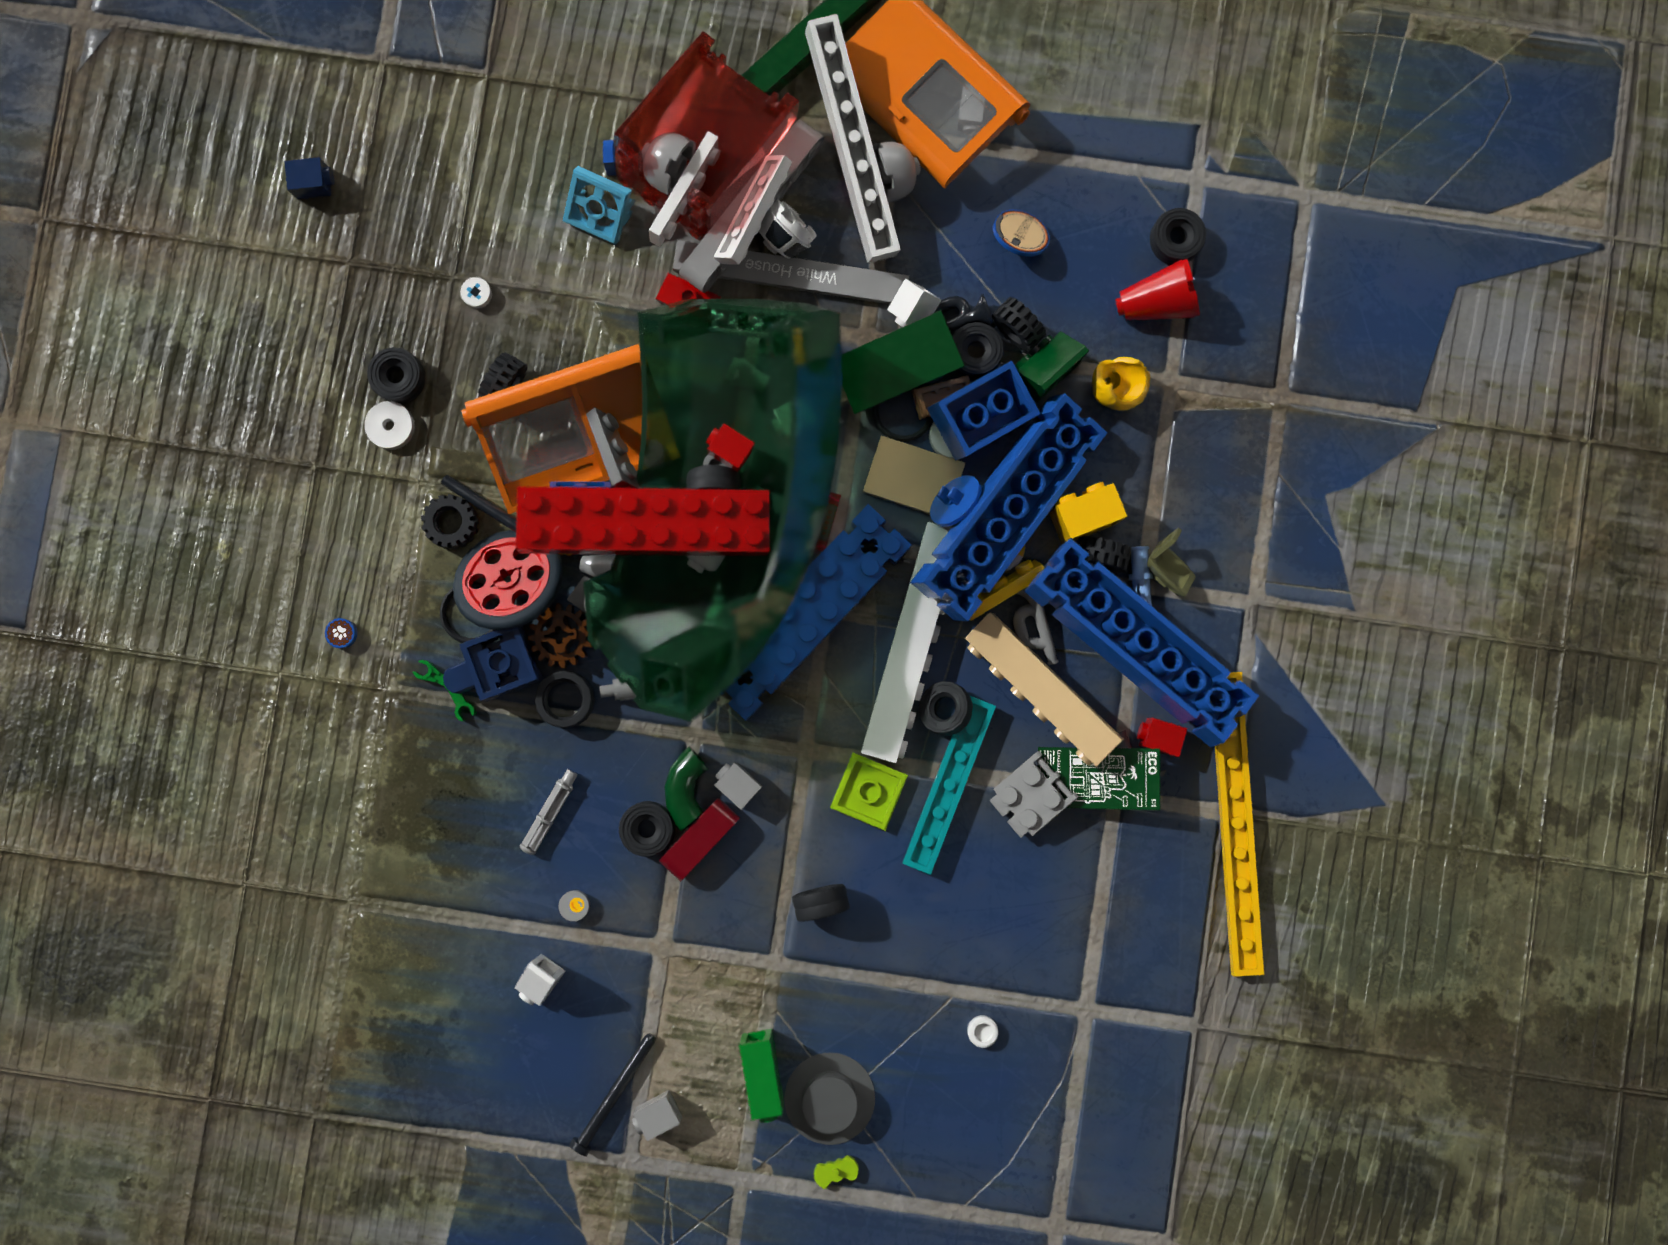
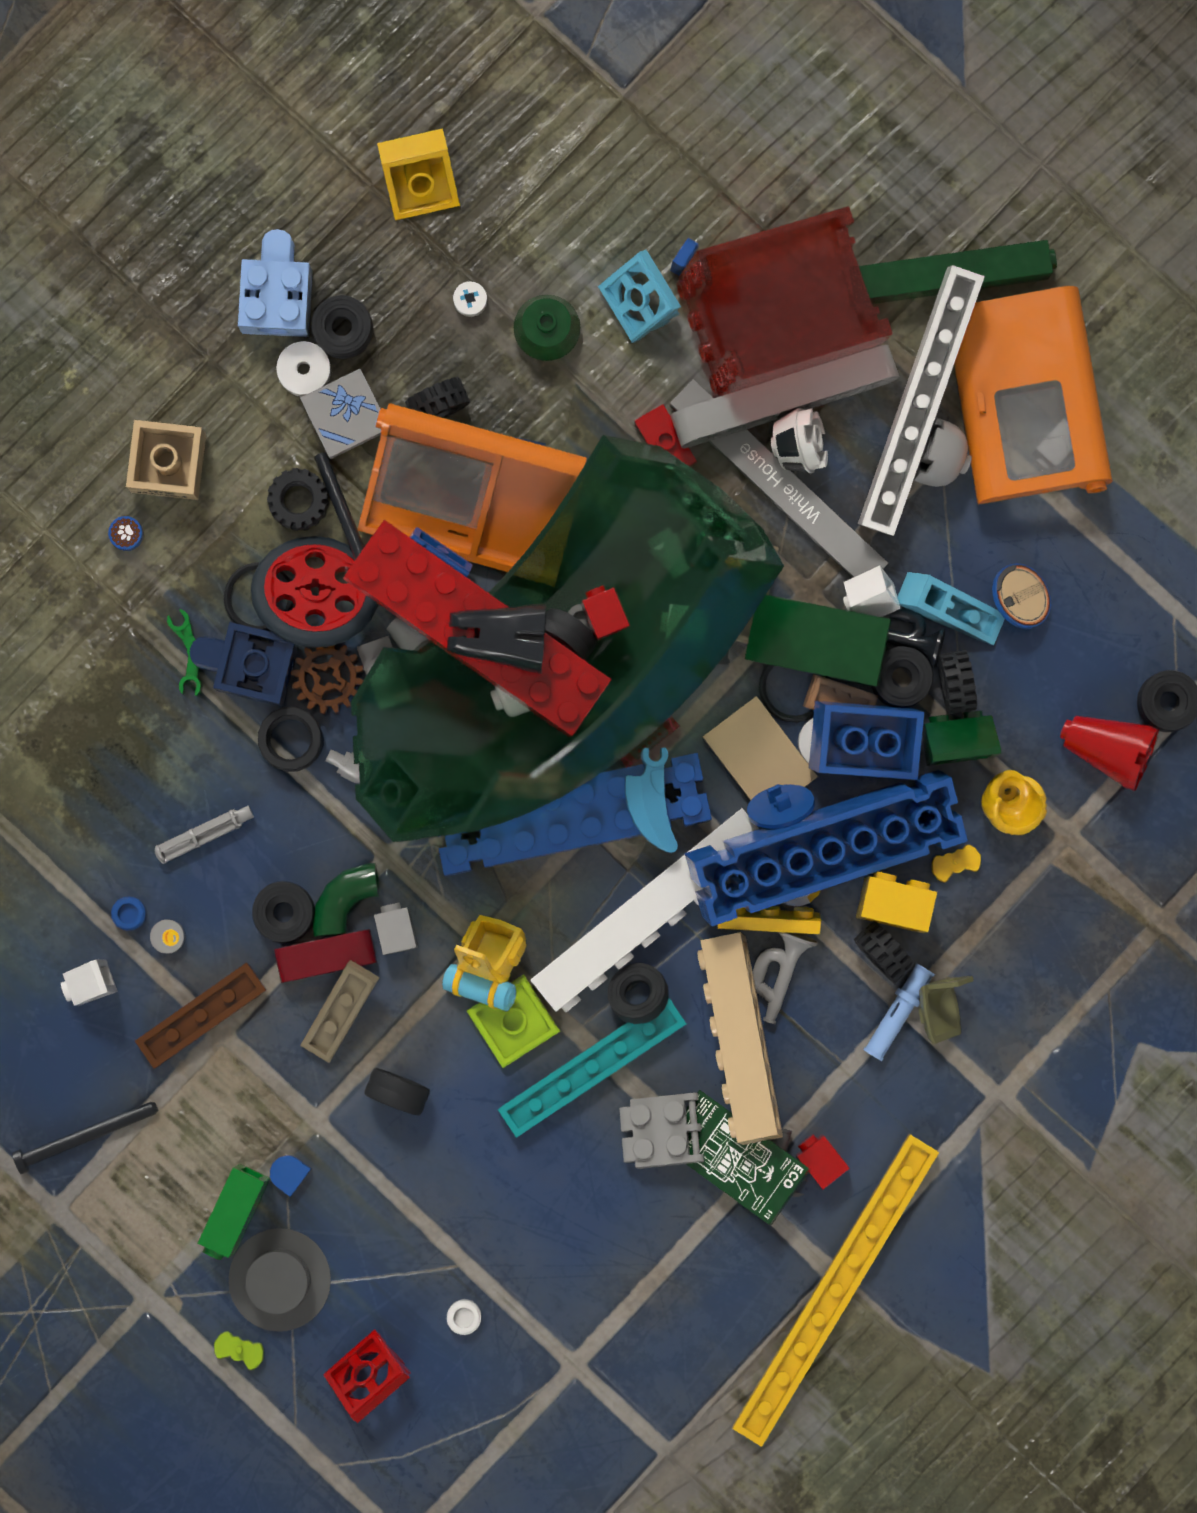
camera: 35 degrees right, 0 degrees up
(309, 178) = (388, 84): dark blue brick -> none
(325, 383) = (272, 290): none -> light blue brick
(331, 558) = (166, 460): none -> tan brick
(376, 227) = (418, 174): none -> yellow slope
(440, 437) = (343, 413): none -> light grey tile
(534, 908) = (128, 913): none -> blue tile
(546, 275) = (547, 327): none -> dark green cone
(612, 449) = (494, 541): dark grey plate -> none
(638, 946) = (200, 1015): none -> reddish brown plate
(656, 1116) = (110, 1182): light grey brick -> none
(665, 511) = (502, 635): none -> black piece
(666, 160) = (732, 302): light grey cylinder -> none
(692, 177) = (743, 335): white plate -> none
(738, 872) = (339, 1011): none -> dark tan tile
(753, 209) = (780, 404): white plate -> none
(782, 1016) = (288, 1173): none -> blue tile
(820, 762) = (486, 962): none -> yellow piece
(857, 564) = (647, 802): none -> dark azure piece
(920, 1138) = (338, 1373): none -> red piece
(975, 276) = (950, 607): none -> medium azure slope
(1102, 460) = (956, 862): none -> yellow piece
(1141, 643) = (859, 1059): blue brick -> none

